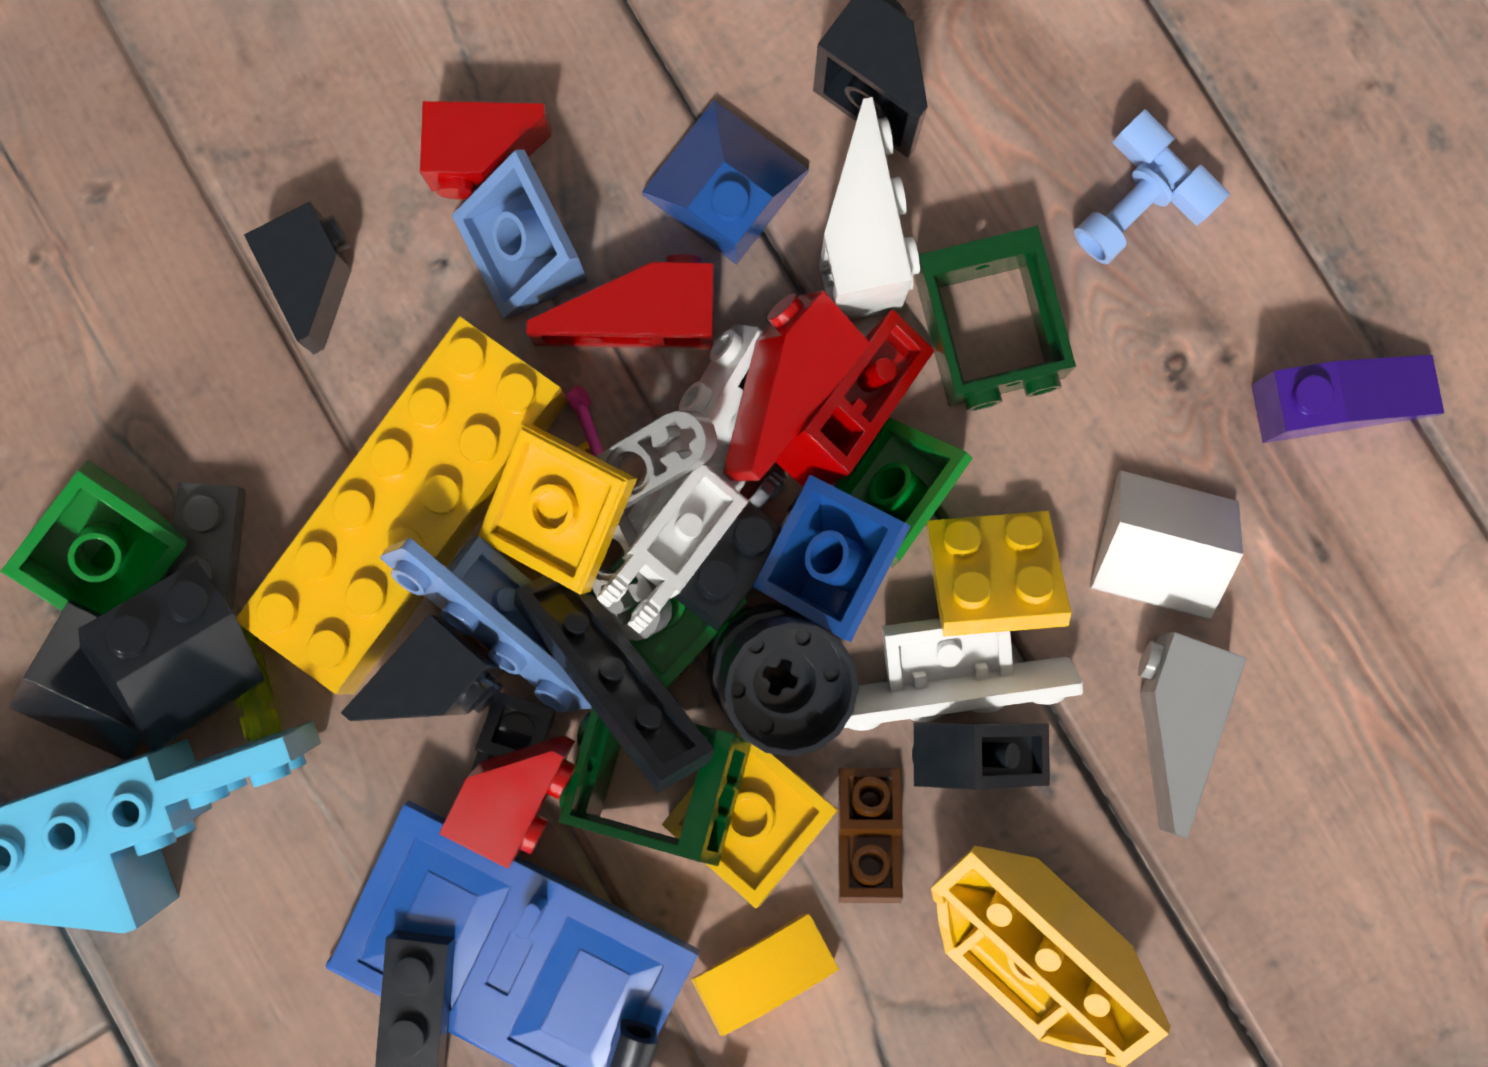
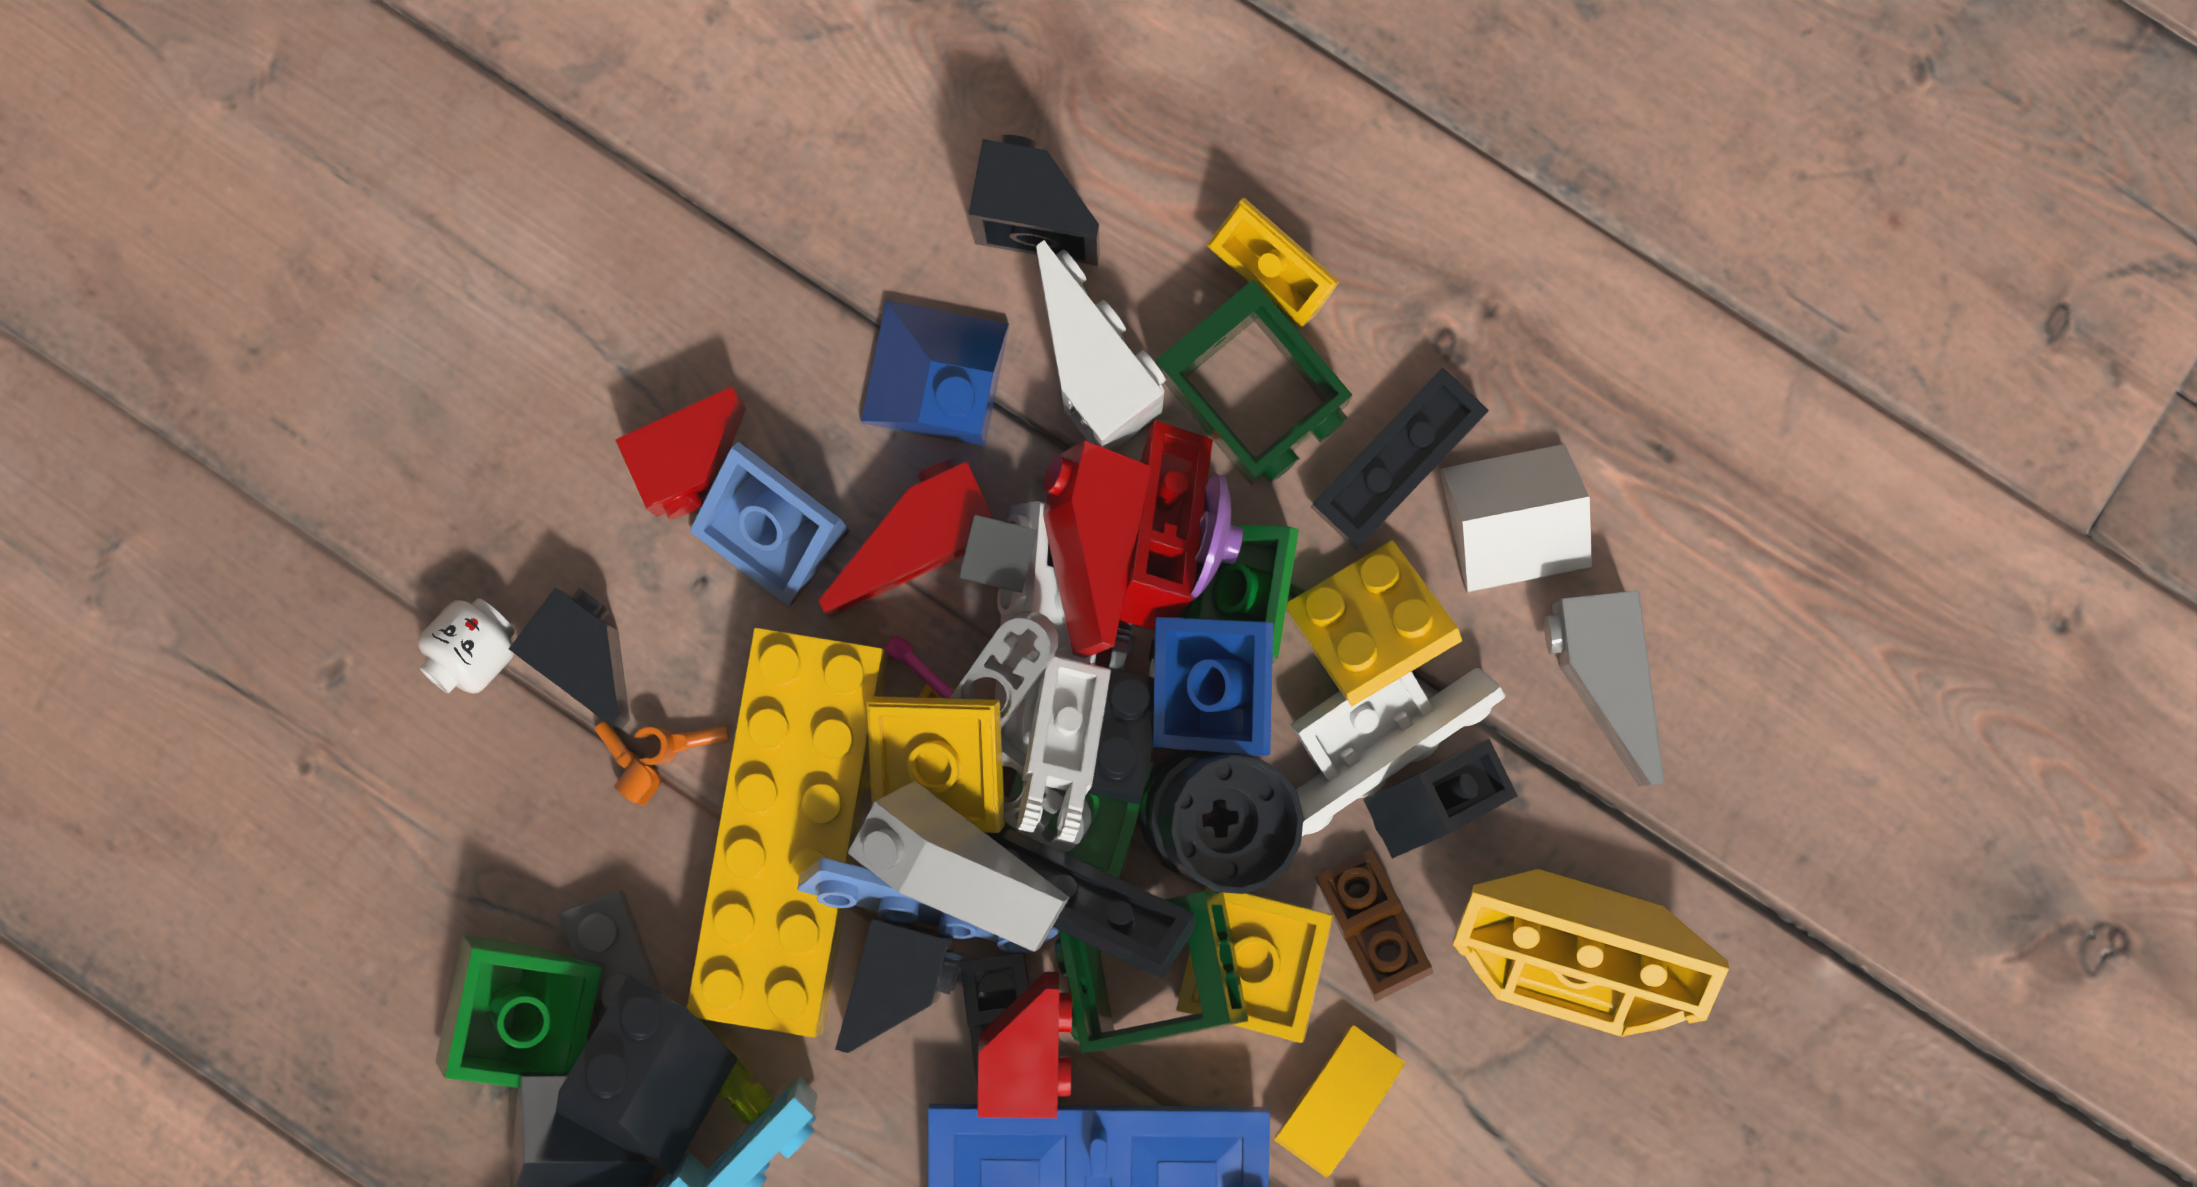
camera: 25 degrees left, 0 degrees up
(212, 218) = (466, 646): none -> white head
(304, 402) = (639, 780): none -> orange hand
(347, 385) = (681, 741): none -> orange hand
(524, 604) = (955, 867): none -> light grey slope
(700, 353) = (998, 553): none -> dark grey tile
(898, 434) = (1218, 538): none -> medium lavender dish
(1065, 222) = (1275, 262): none -> yellow slope
(1089, 443) = (1399, 458): none -> black plate
(1158, 180) = (1345, 175): light blue bar -> none
(1345, 396) = (1618, 296): dark purple slope -> none

